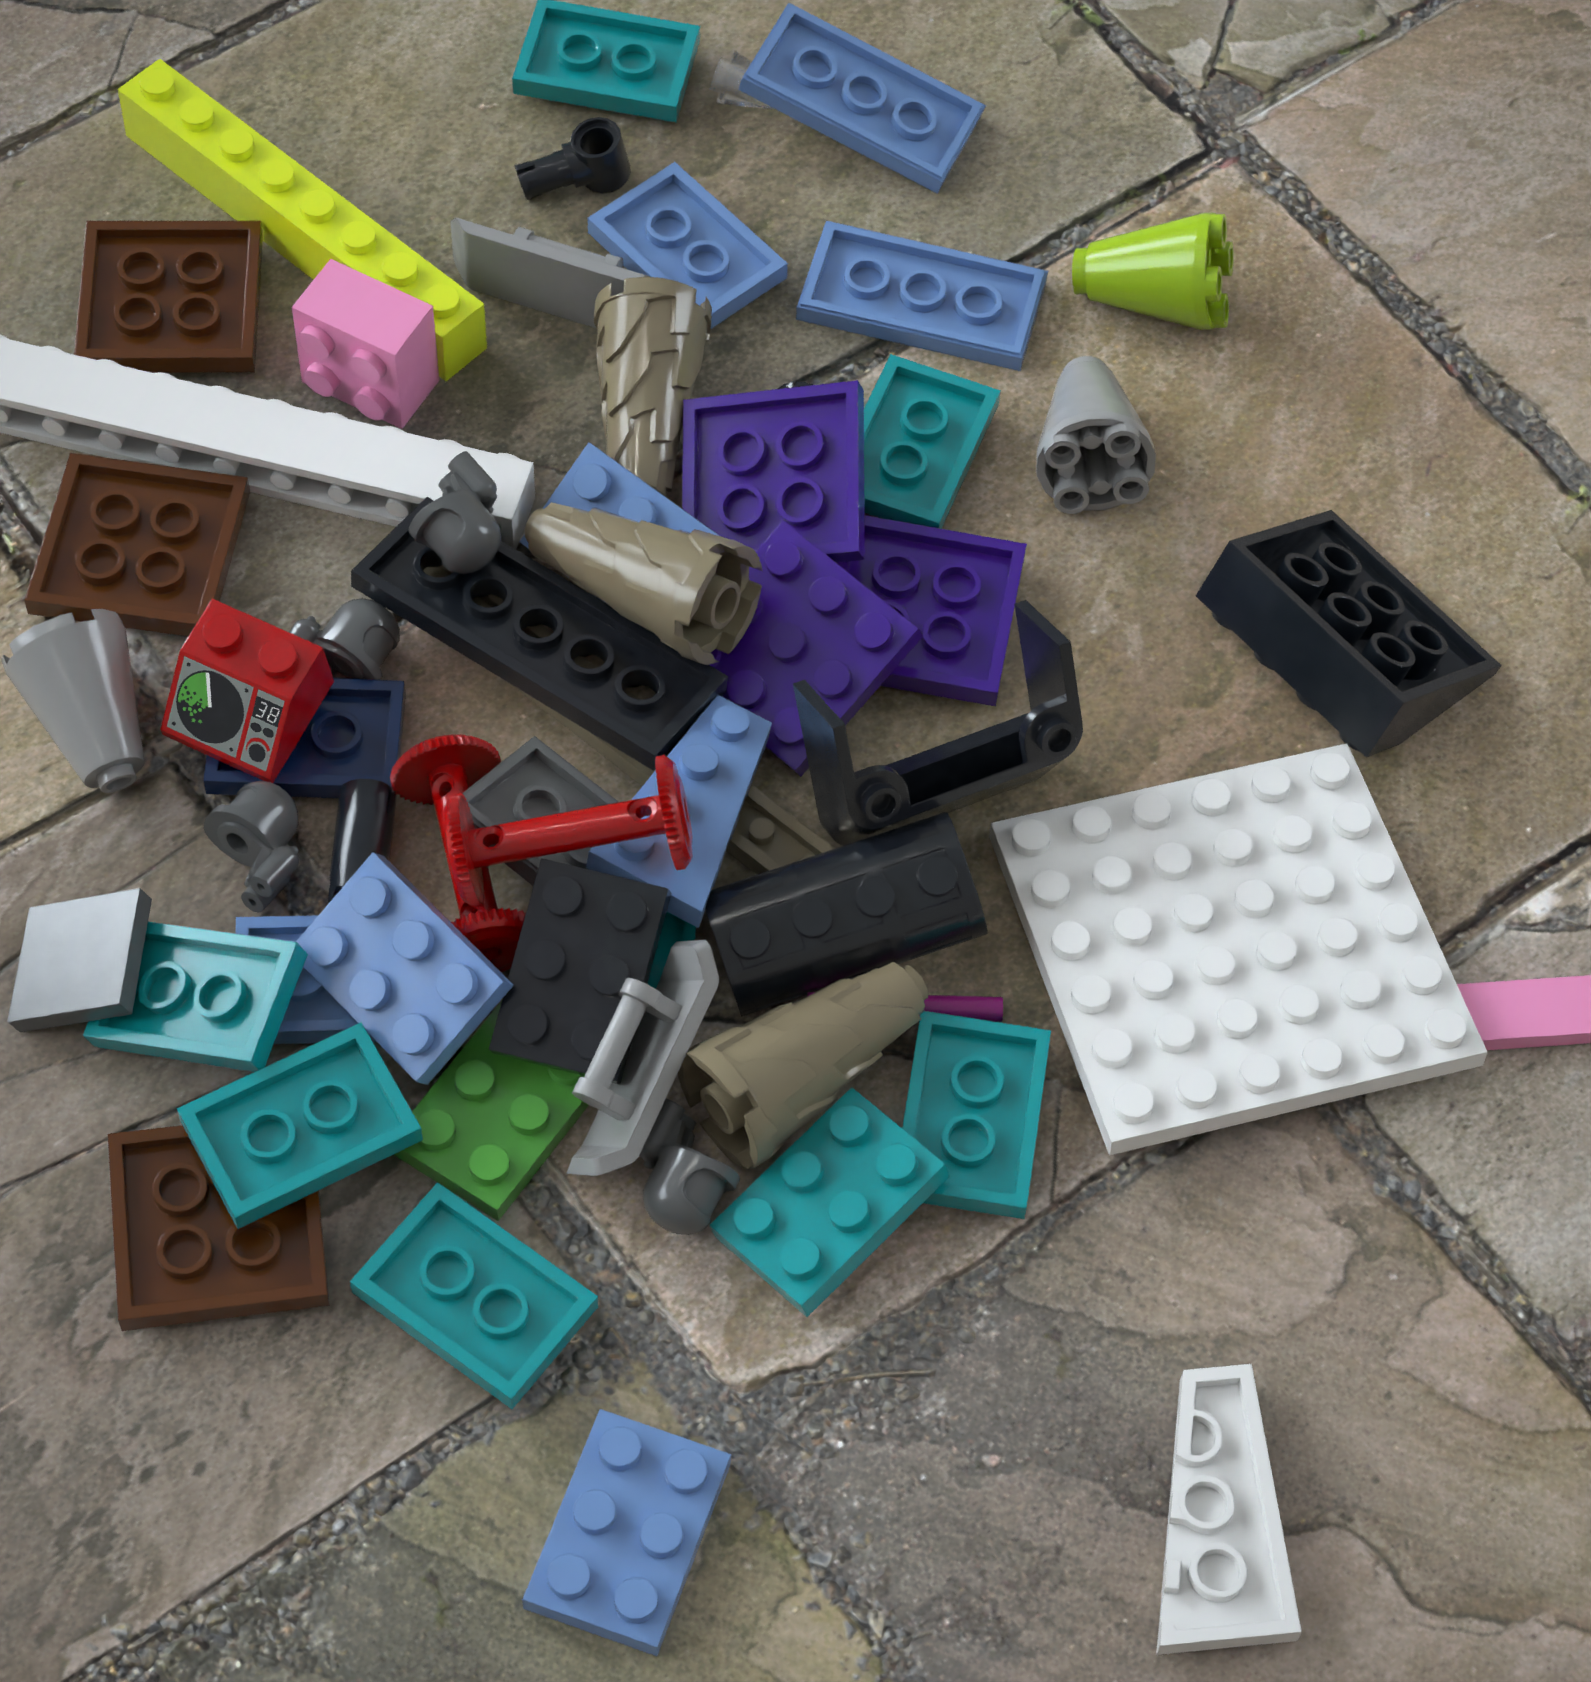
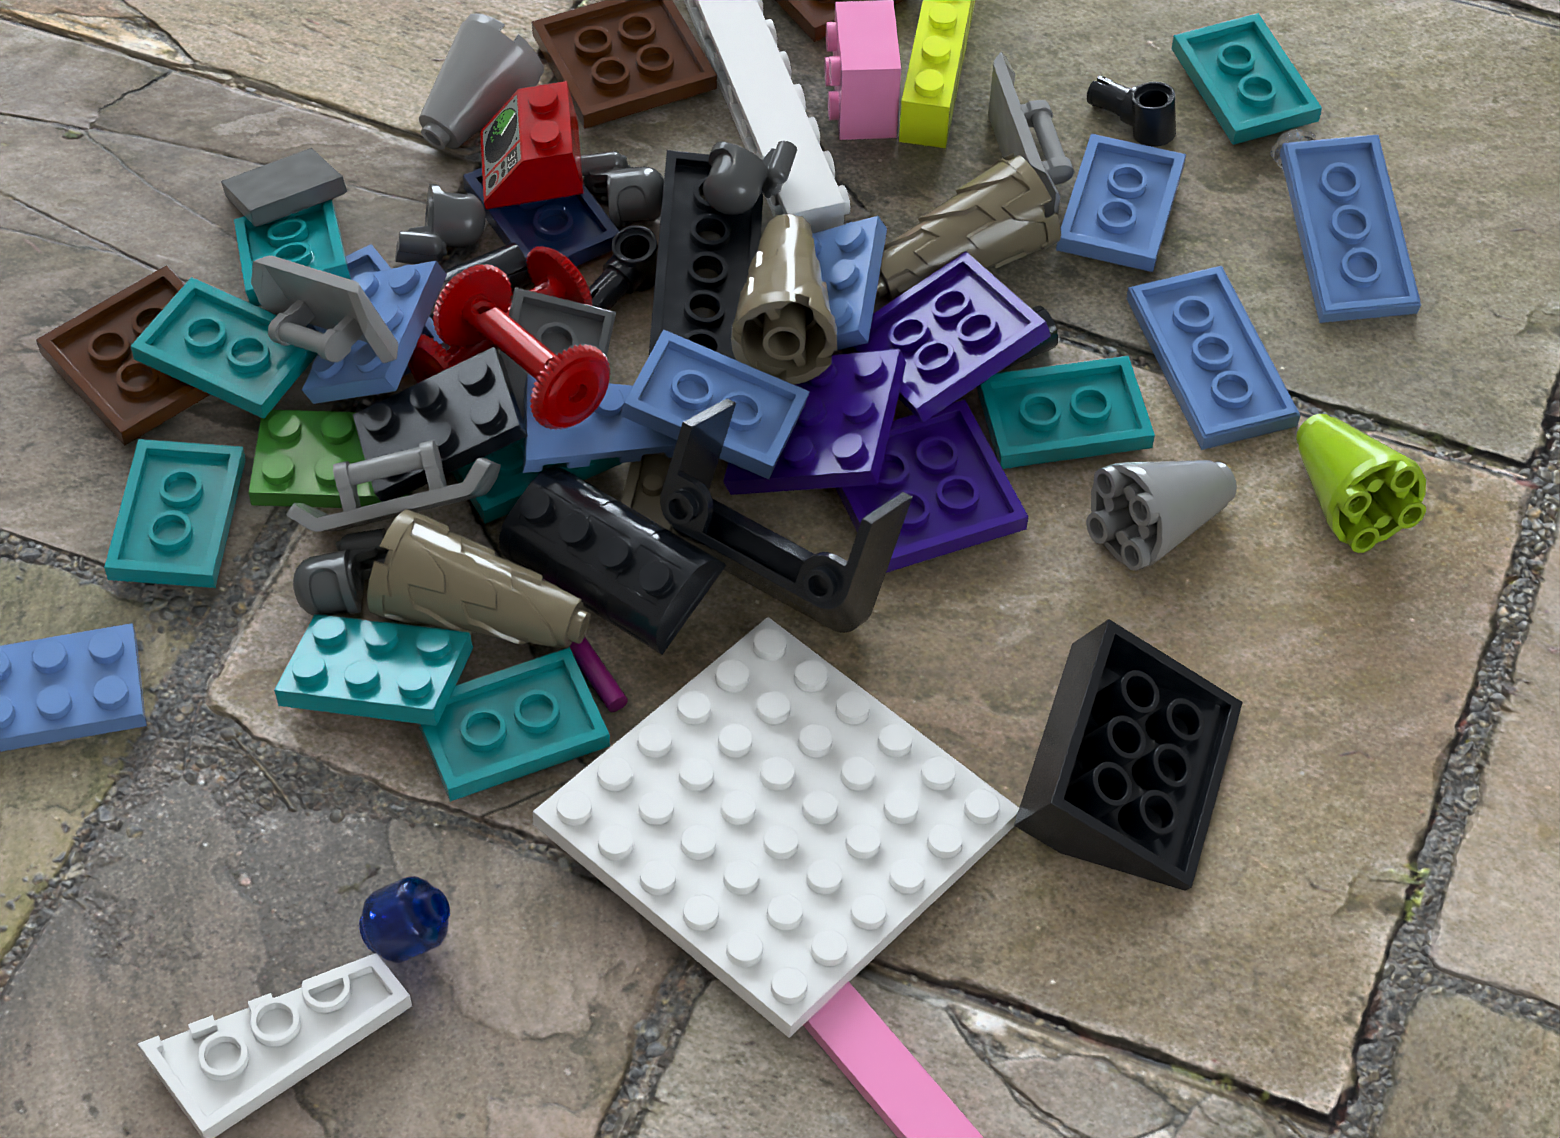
camera: 60 degrees right, 5 degrees down
(325, 999) = (319, 298): none -> light grey piece
(453, 710) = (623, 270): none -> black pin
(738, 709) = (689, 378): none -> medium blue plate
(1164, 1322) = (404, 919): none -> clear blue head

